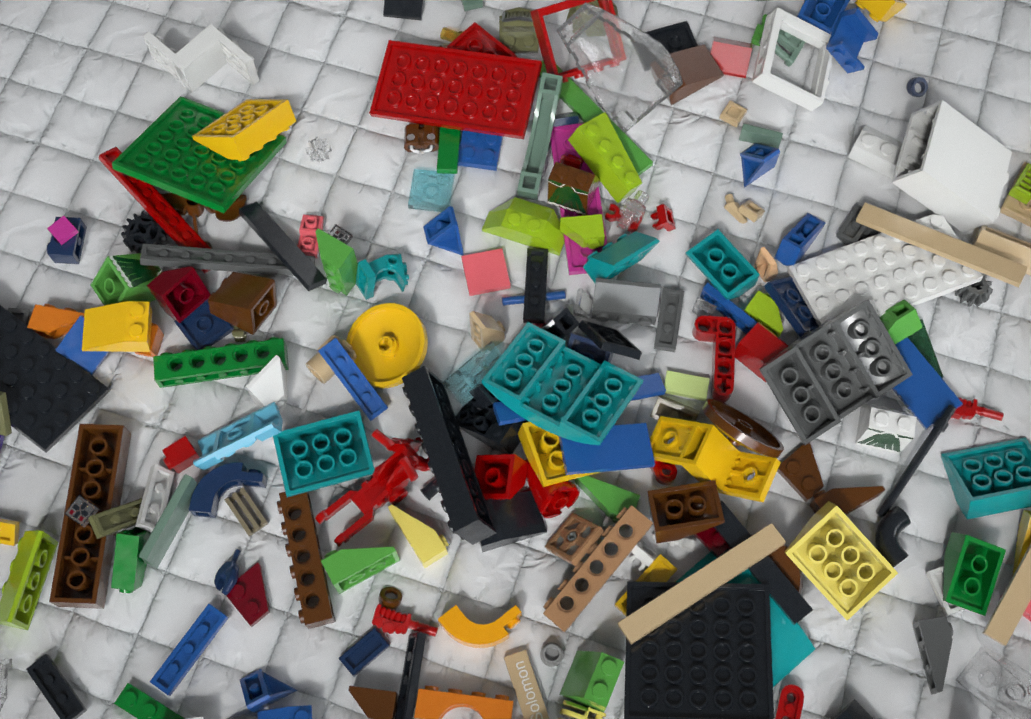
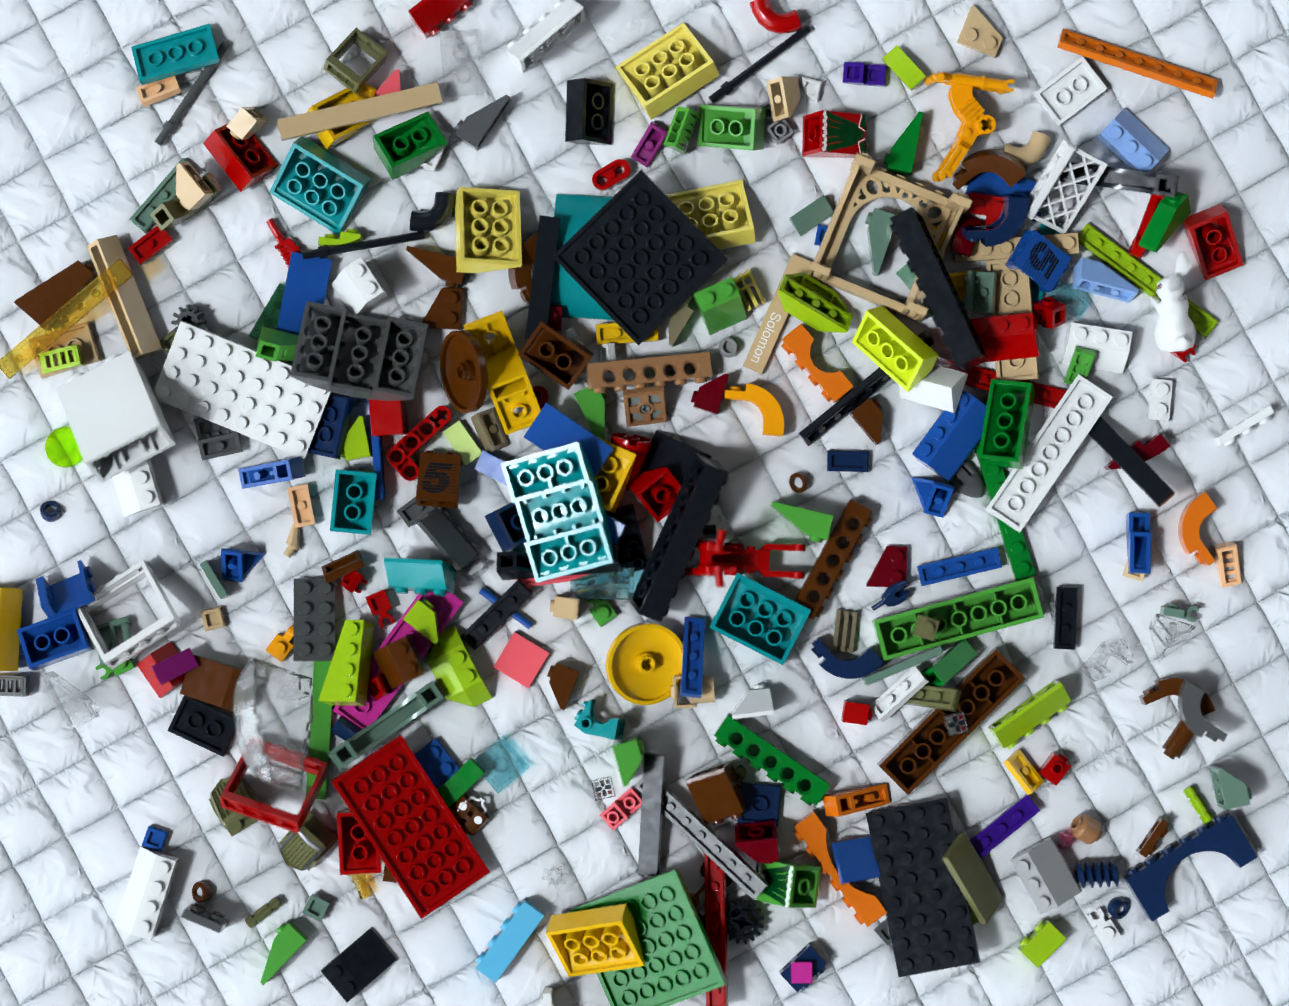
camera: 140 degrees left, 20 degrees up
(118, 327) = (825, 847): yellow slope -> none
(125, 389) = (855, 800): none -> orange slope
(152, 604) = (960, 618): none -> bright green brick
(171, 563) = (925, 627): none -> olive brick
(241, 433) = (805, 686): medium azure piece -> none
(311, 85) = (510, 940): none -> medium azure brick
(399, 623) = (810, 460): red piece -> none
(422, 538) = (744, 499): light yellow slope -> none
(439, 280) = (562, 682): none -> reddish brown slope
(444, 232) = (523, 718): blue slope -> none
(456, 357) = (601, 611): none -> bright green plate
(529, 598) = (710, 395): none -> dark red slope
(609, 339) = (490, 518): black tile -> none
(613, 637) = (679, 320): none -> dark tan slope
(632, 210) = (373, 605): clear axle -> none
(664, 168) = (314, 620): none -> dark grey plate
(668, 137) = (281, 645): none -> light orange plate
(678, 338) = (438, 479): none -> reddish brown panel
(681, 221) = (342, 566): none -> reddish brown tile
(701, 583) = (593, 297): tan tile -> none
(703, 308) = (395, 484): clear tile -> none
(727, 51) = (175, 666): none -> magenta slope
(751, 210) = (284, 527): tan tile -> none
(754, 234) = (301, 506): none -> light nougat plate
(766, 265) = (318, 474): light nougat slope -> none
(933, 457) = (347, 237): none -> lime slope
(942, 244) = (185, 371): tan tile -> none

